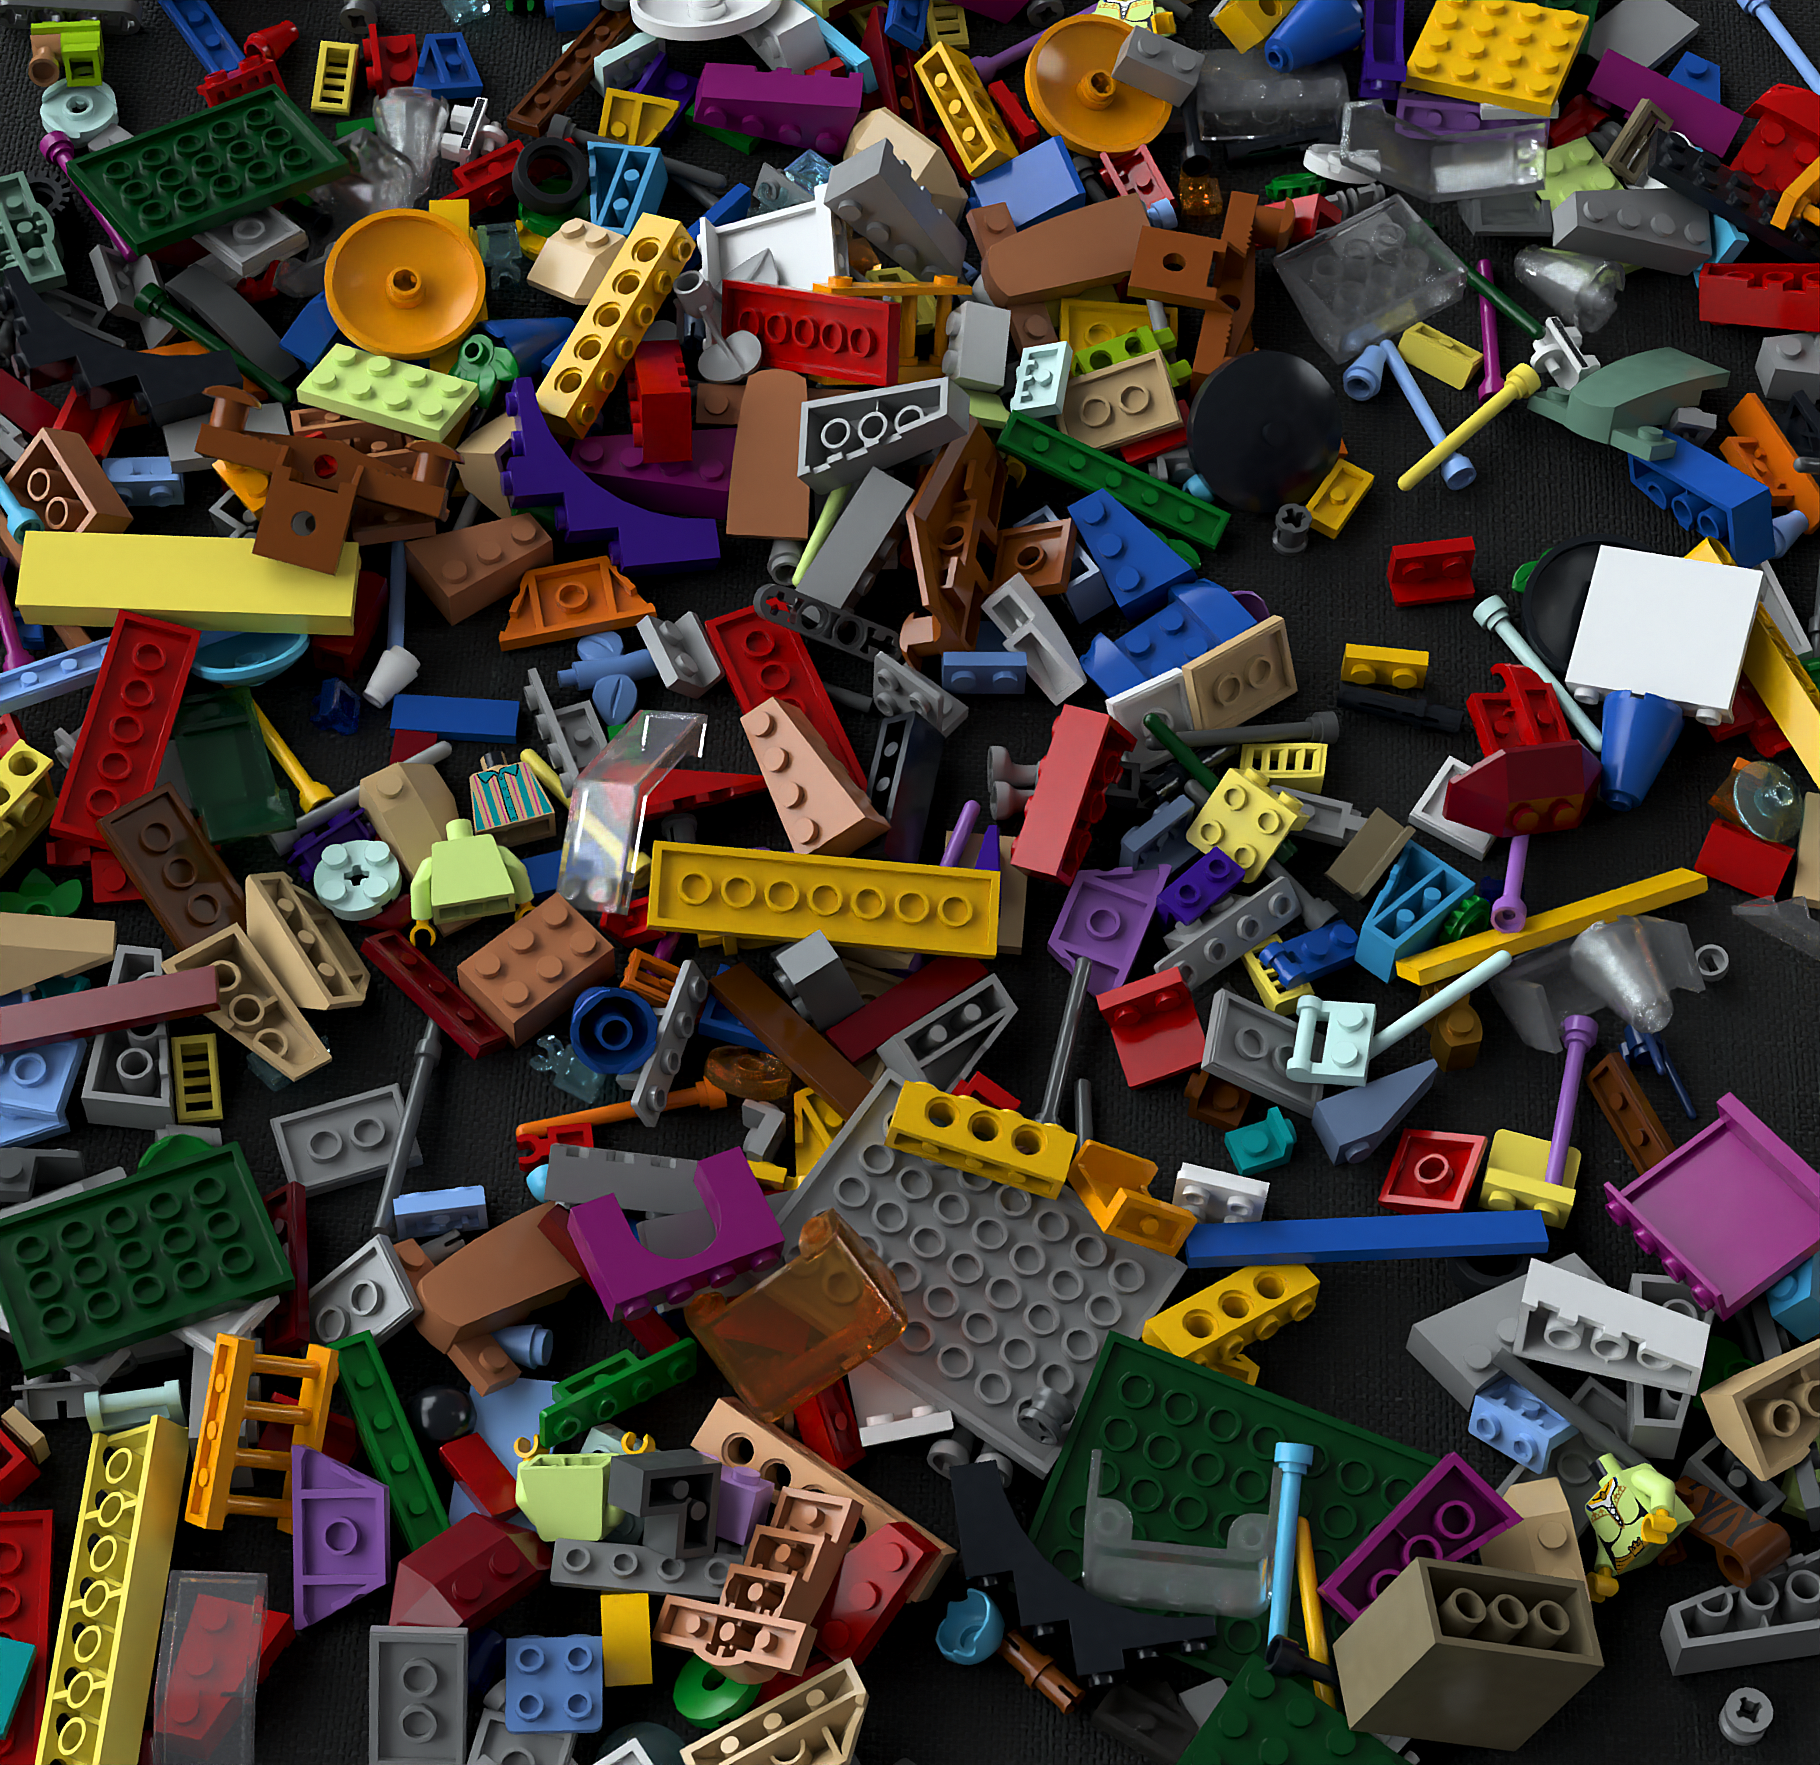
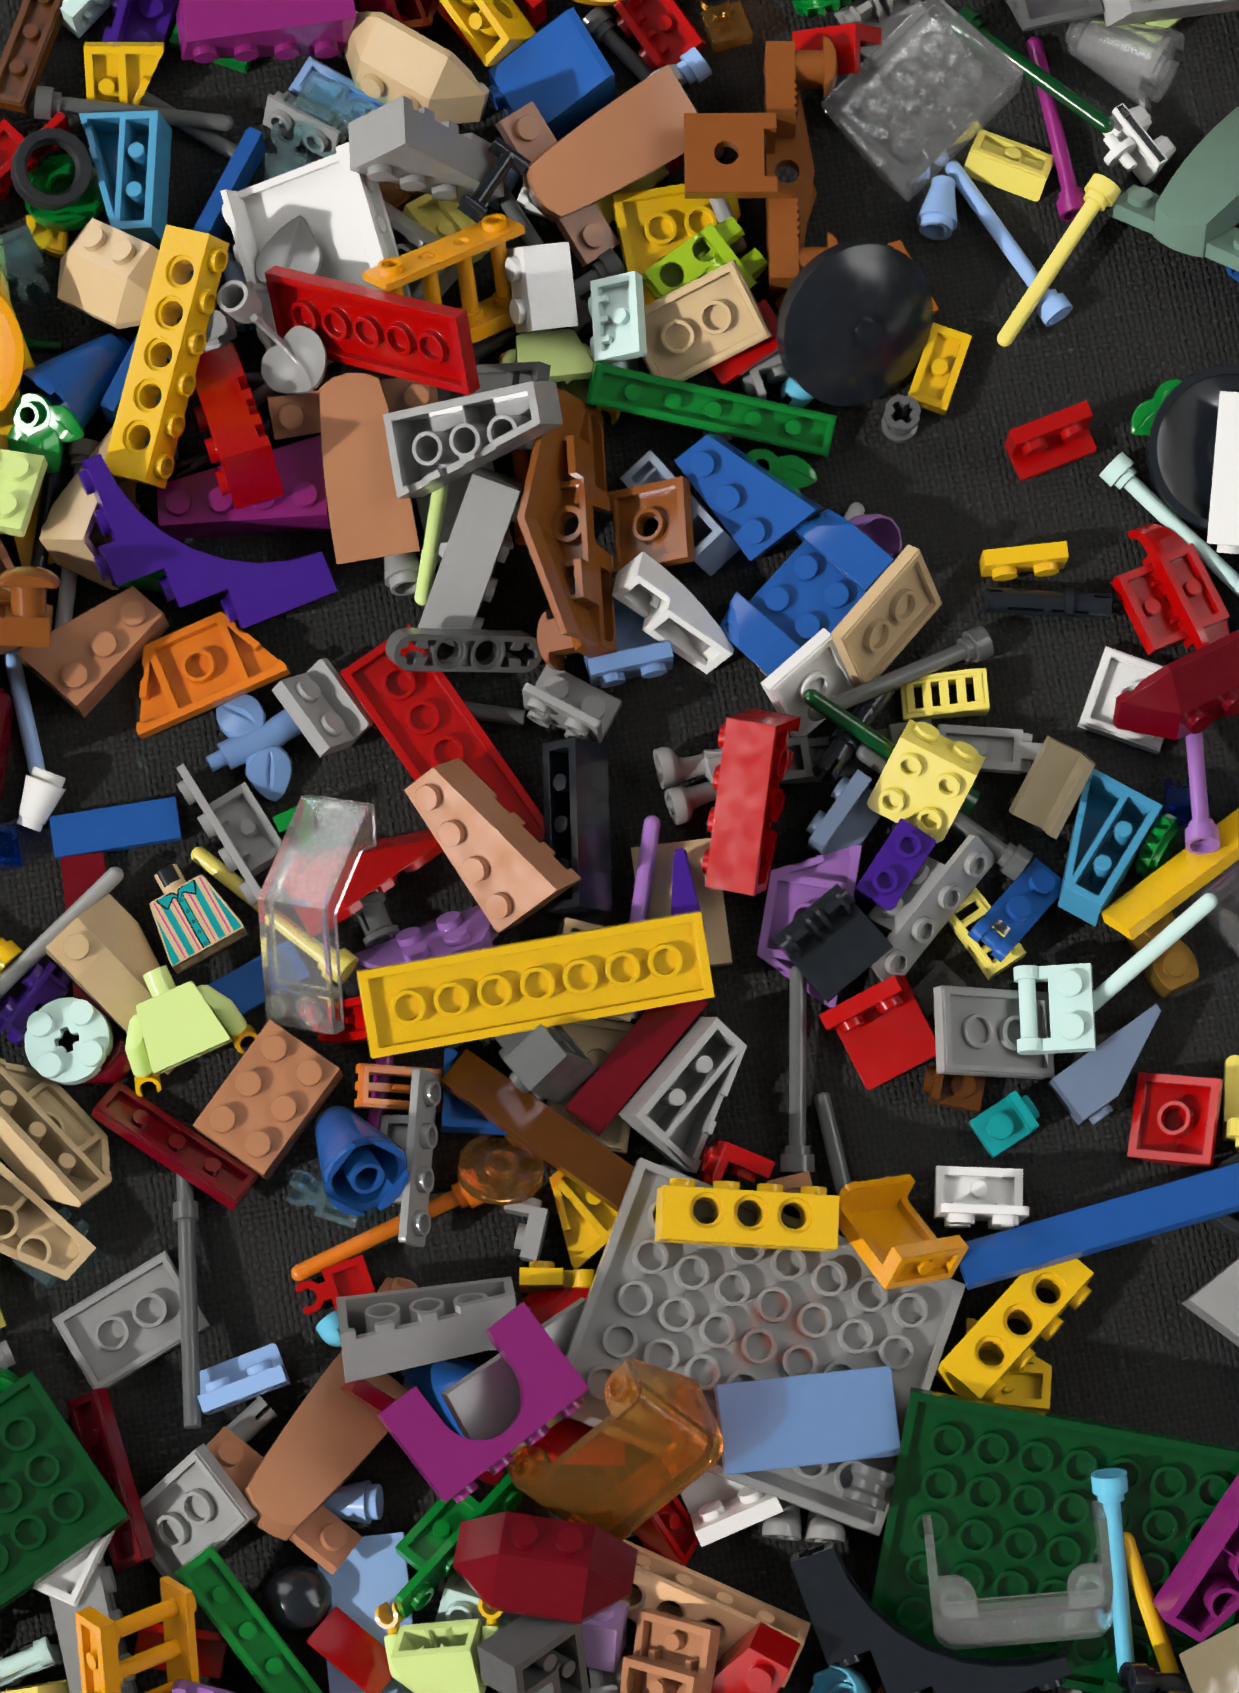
camera: 10 degrees left, 20 degrees up
(702, 1407) = (544, 1566): none -> dark red wedge
(969, 238) = (507, 158): none -> black piece
(997, 1341) = (807, 1420): none -> medium blue tile
(1123, 938) = (832, 942): none -> black hinge

